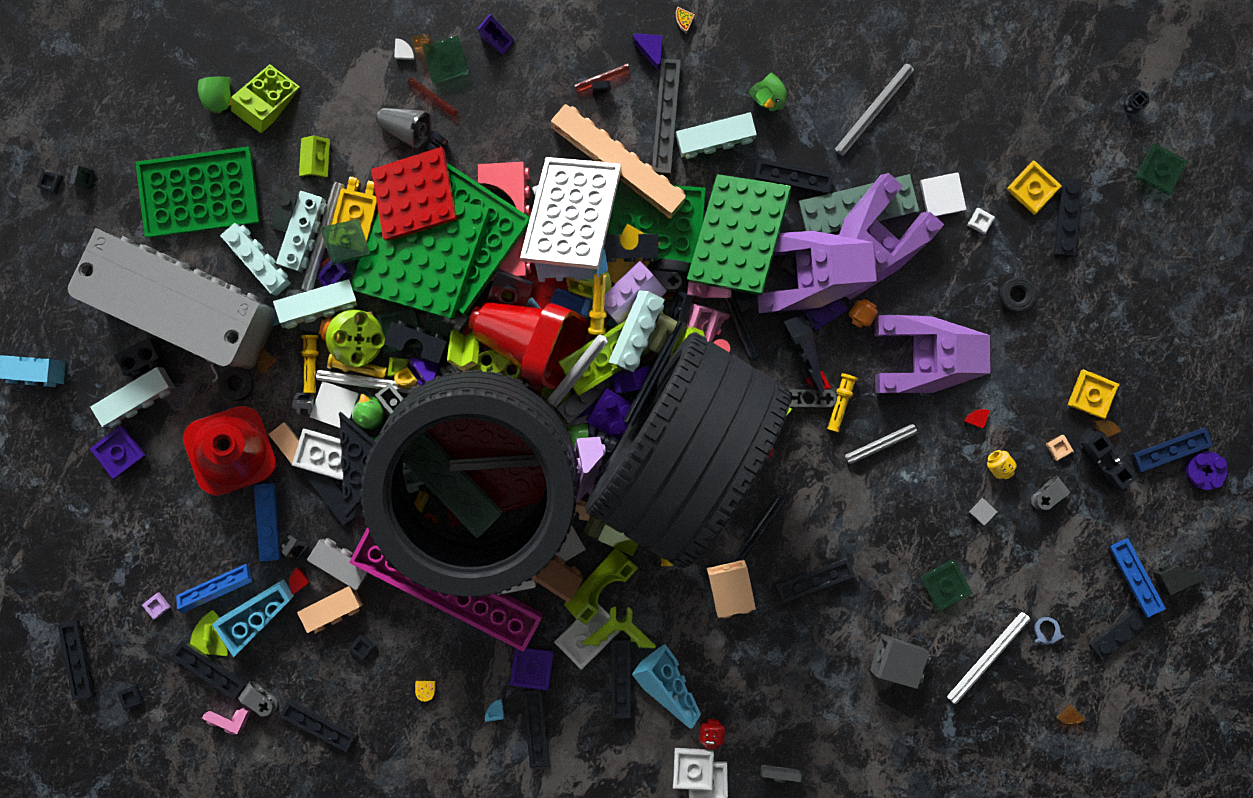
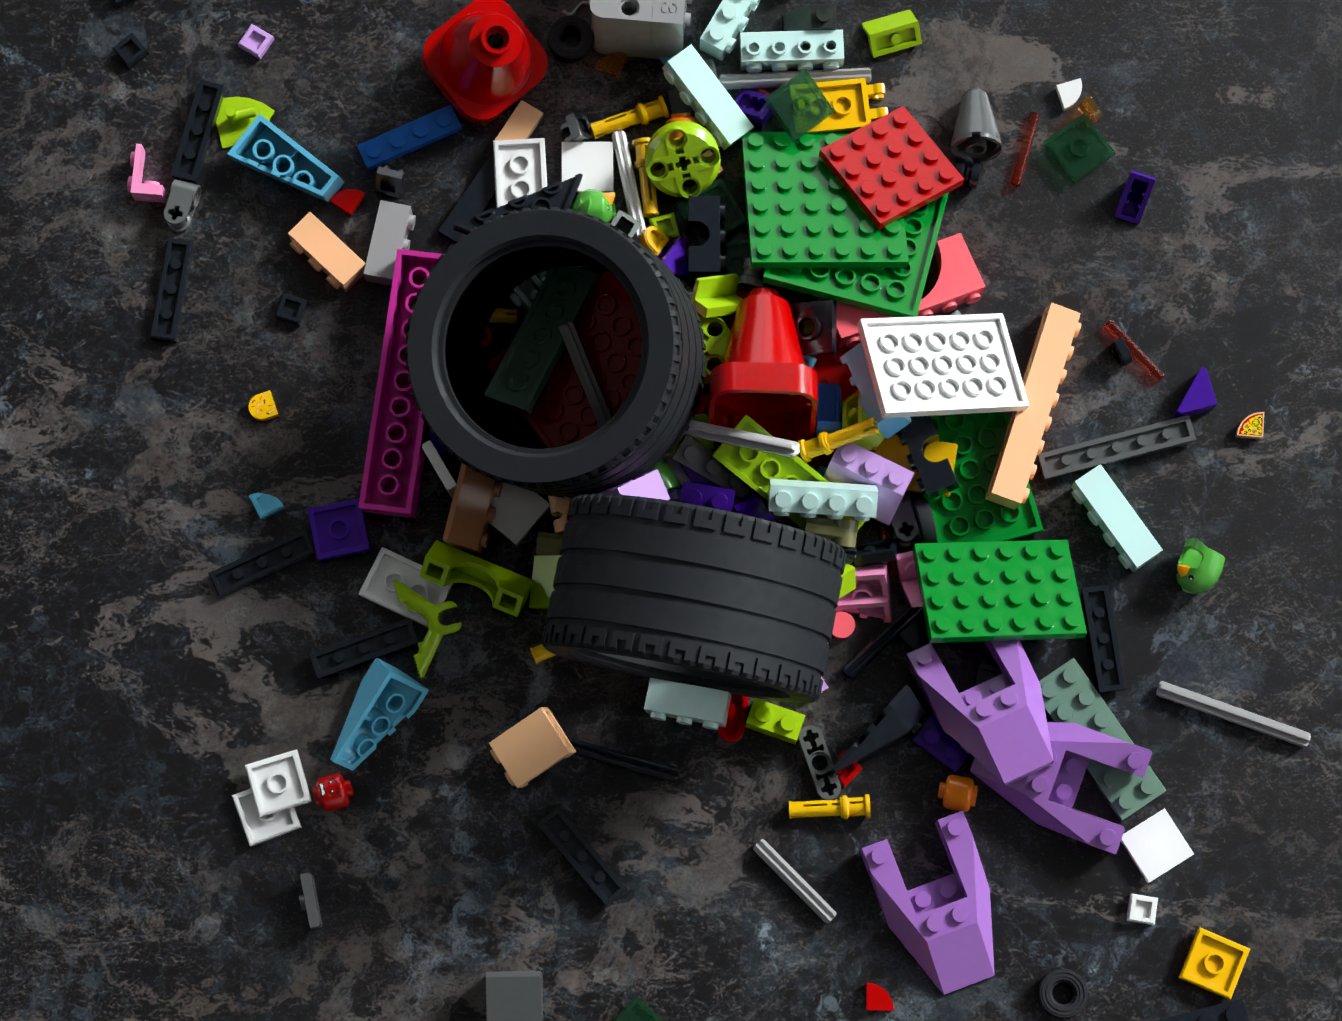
camera: 65 degrees right, 10 degrees down
(213, 588) = (303, 102): blue plate -> none

